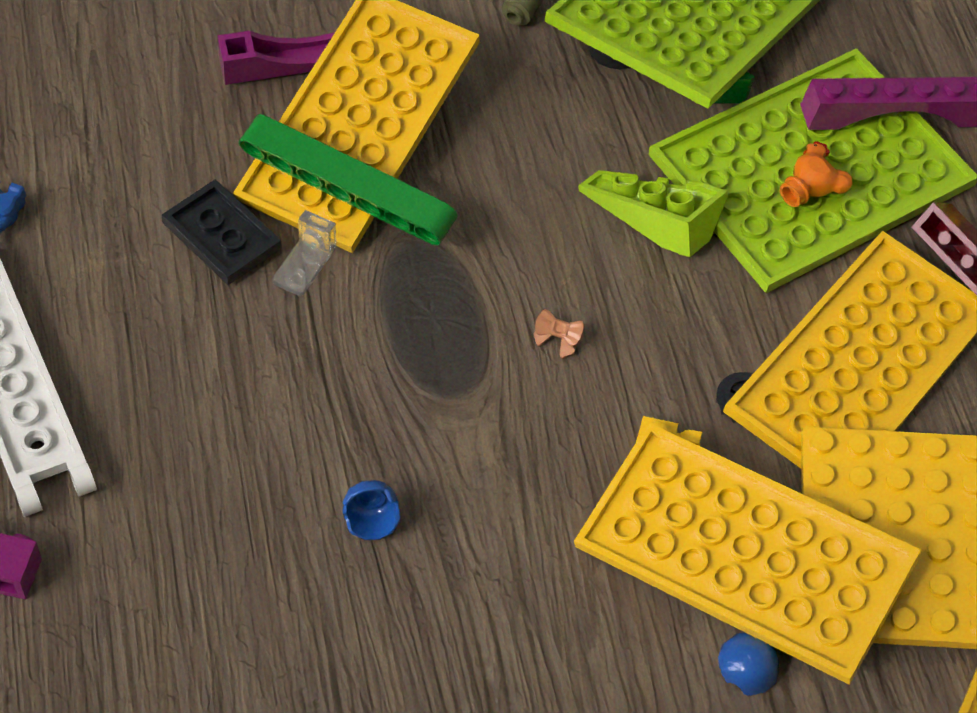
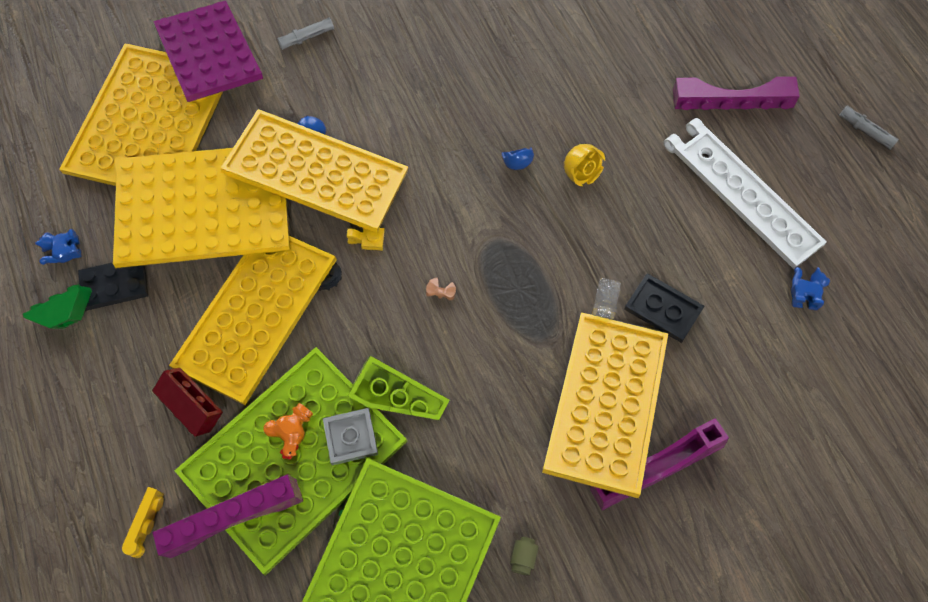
camera: 175 degrees right, 10 degrees up
(261, 468) = (584, 164): none -> yellow cylinder
(348, 179) = (599, 343): green beam -> none
(729, 153) = (350, 436): none -> light grey plate

